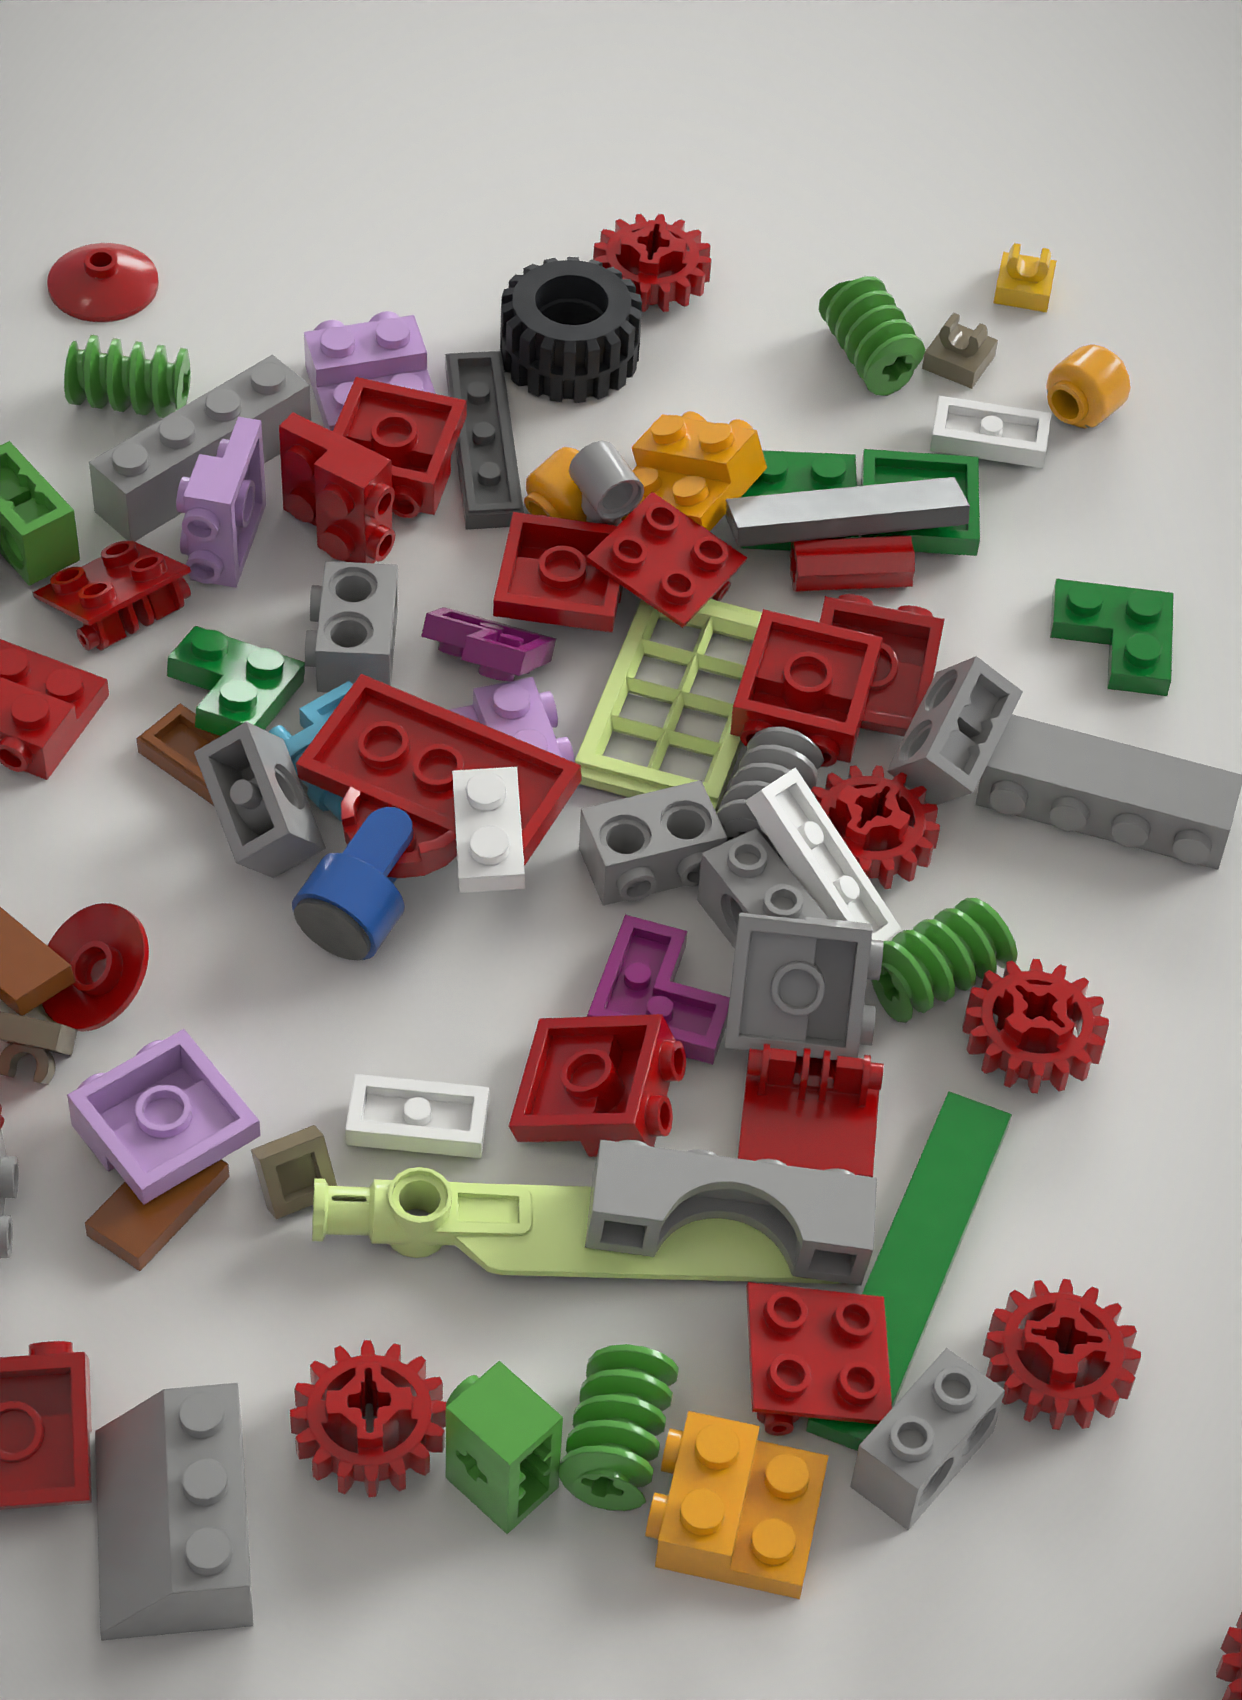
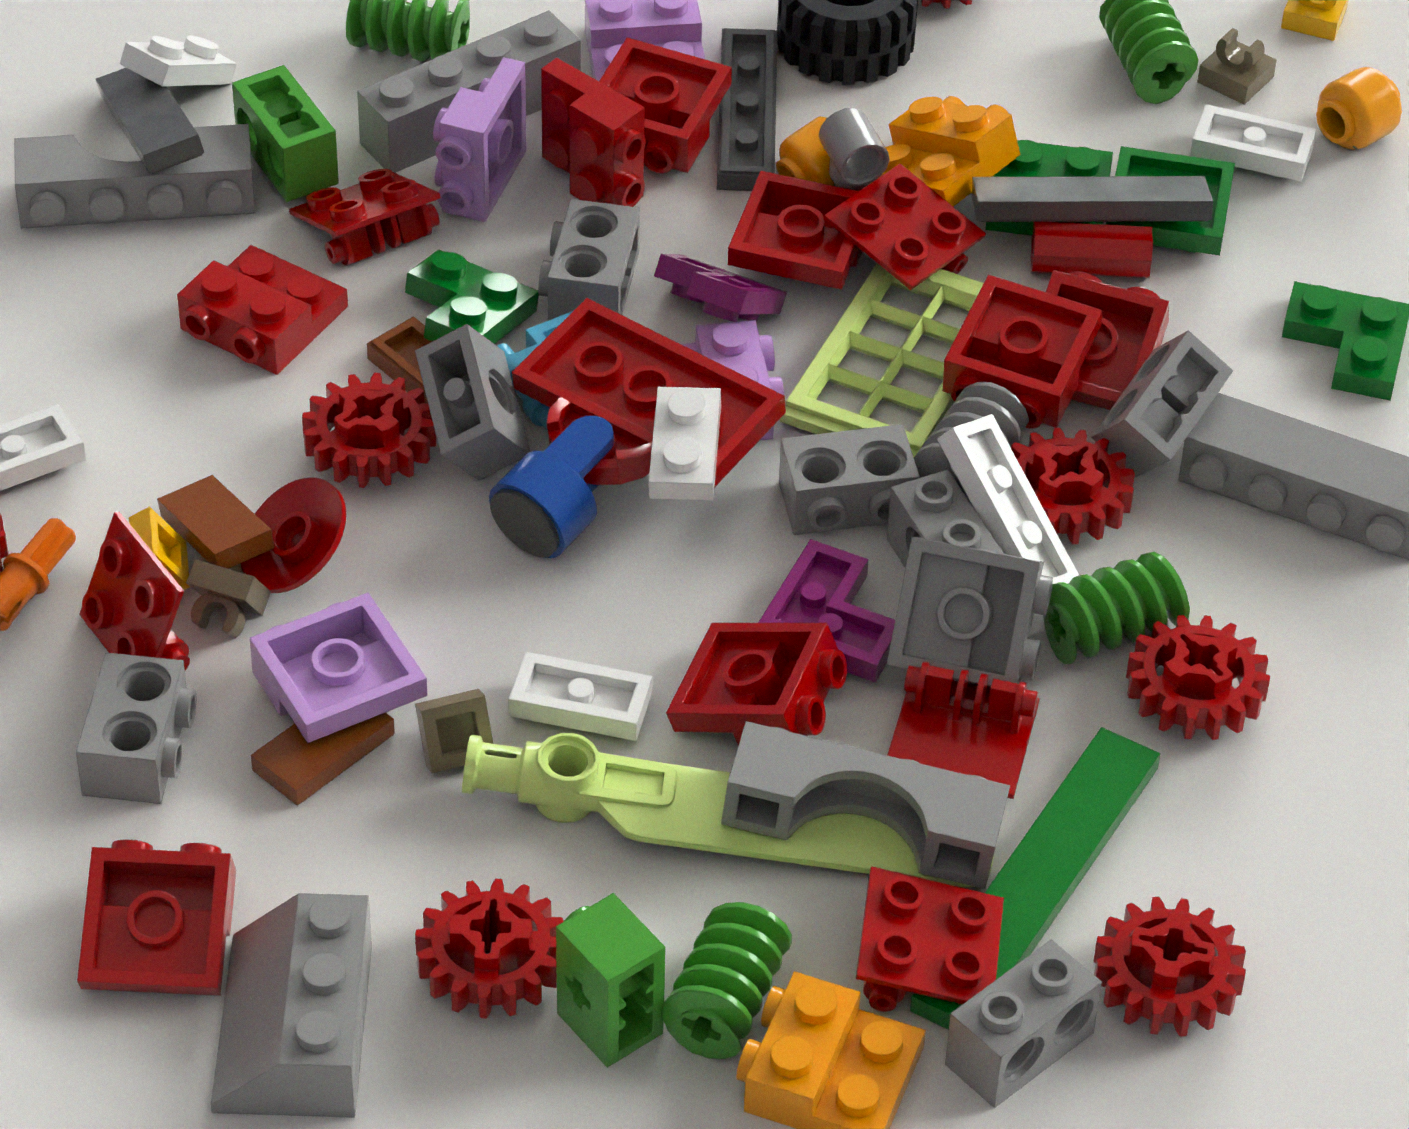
camera: 10 degrees right, 5 degrees down
(154, 837) = (369, 430): none -> red gear

